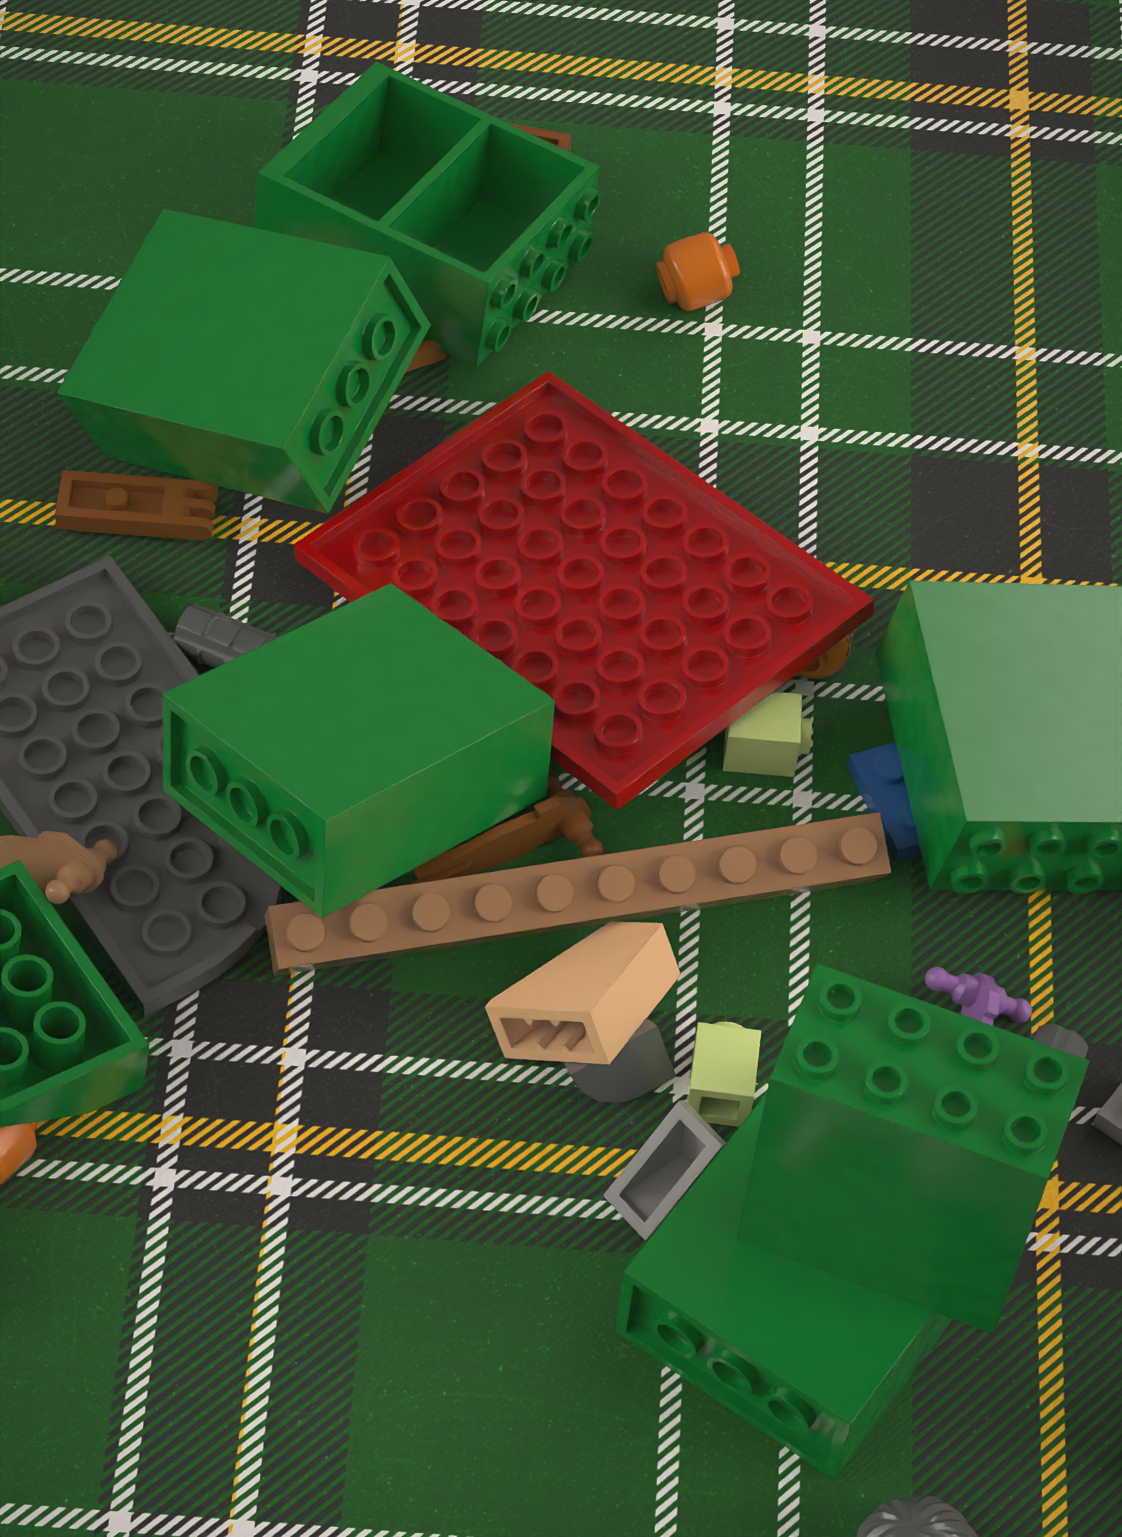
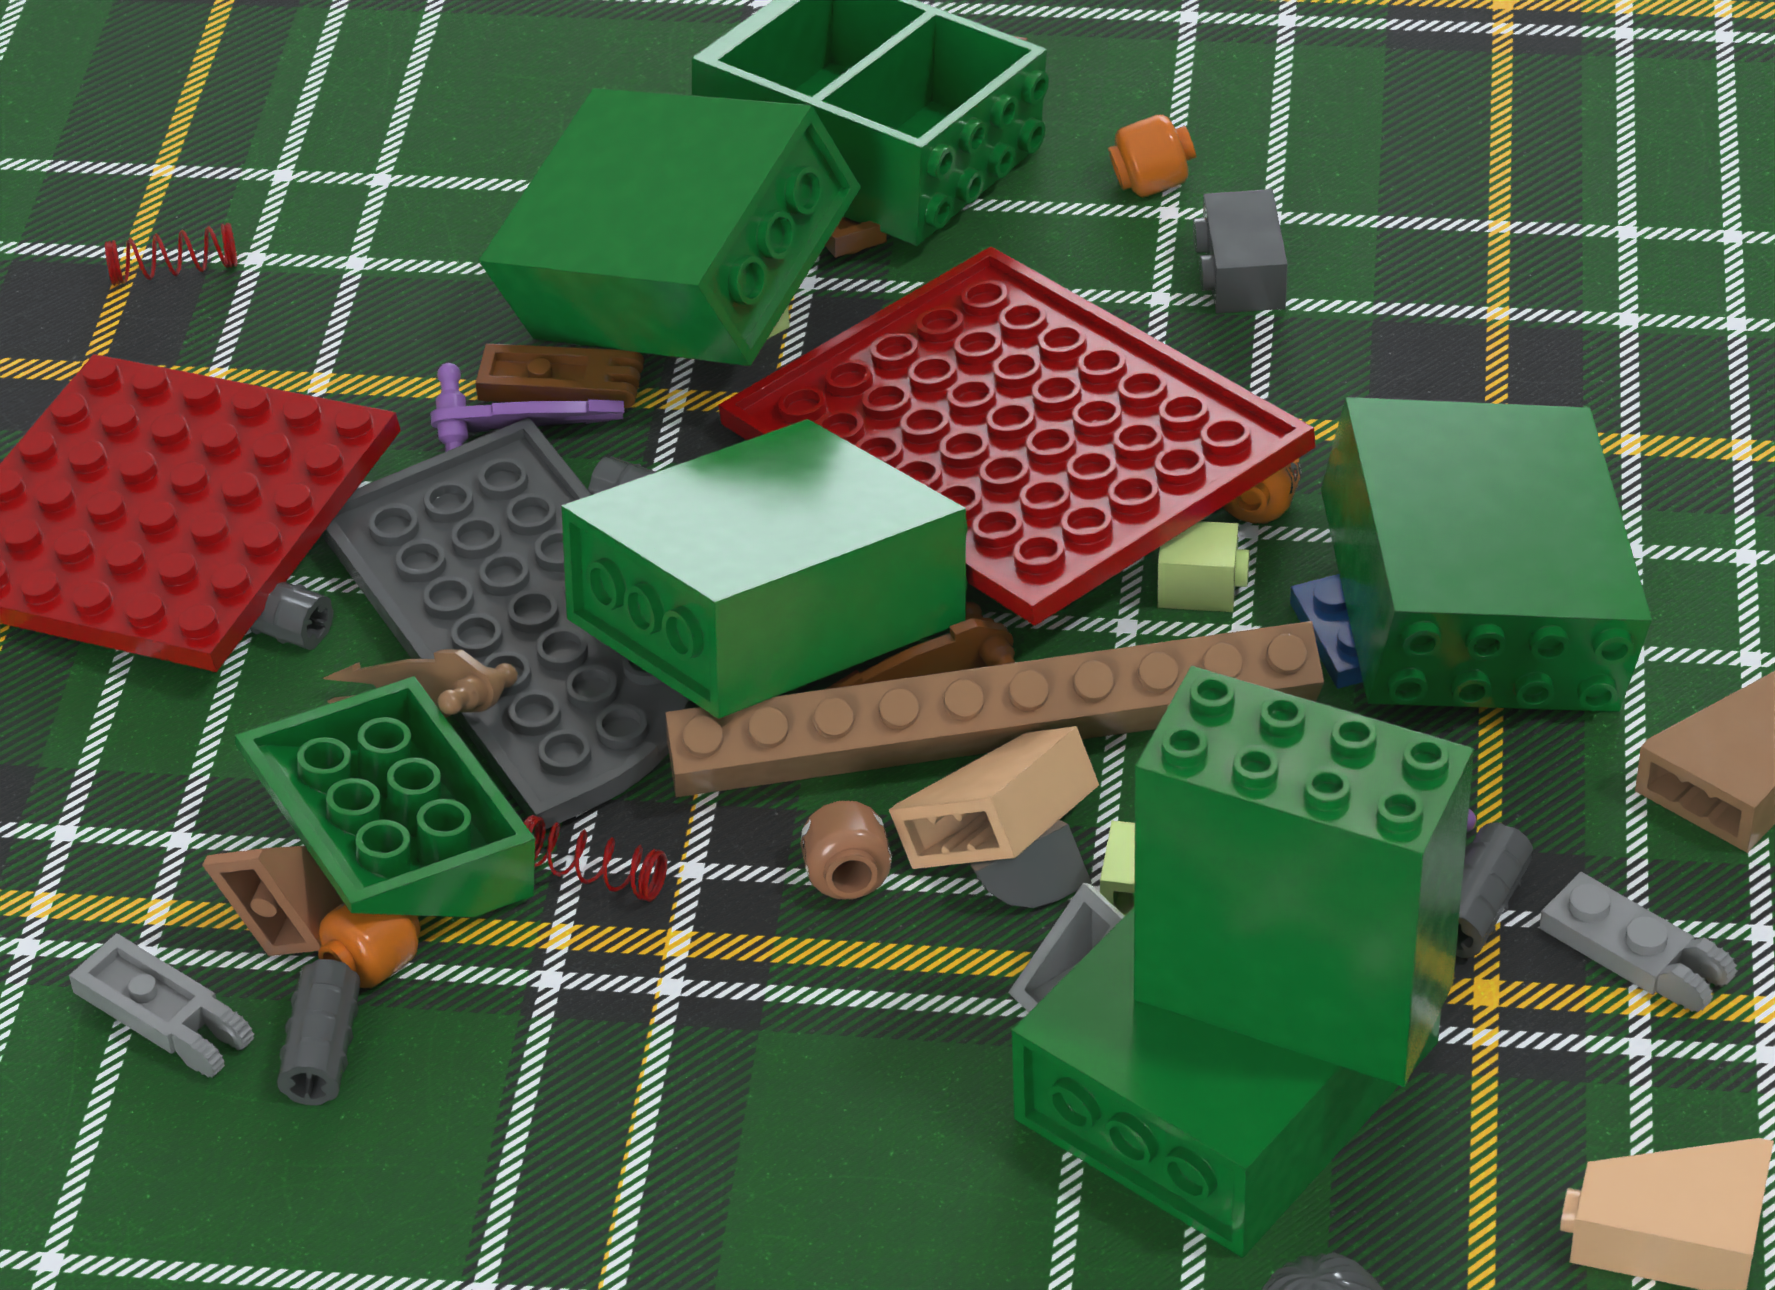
camera: 10 degrees right, 10 degrees down
(36, 555) = (456, 419): none -> medium lavender piece
(258, 1068) = (645, 893): none -> red piece
(444, 1045) = (845, 850): none -> nougat head
(788, 381) = (1242, 251): none -> dark grey brick

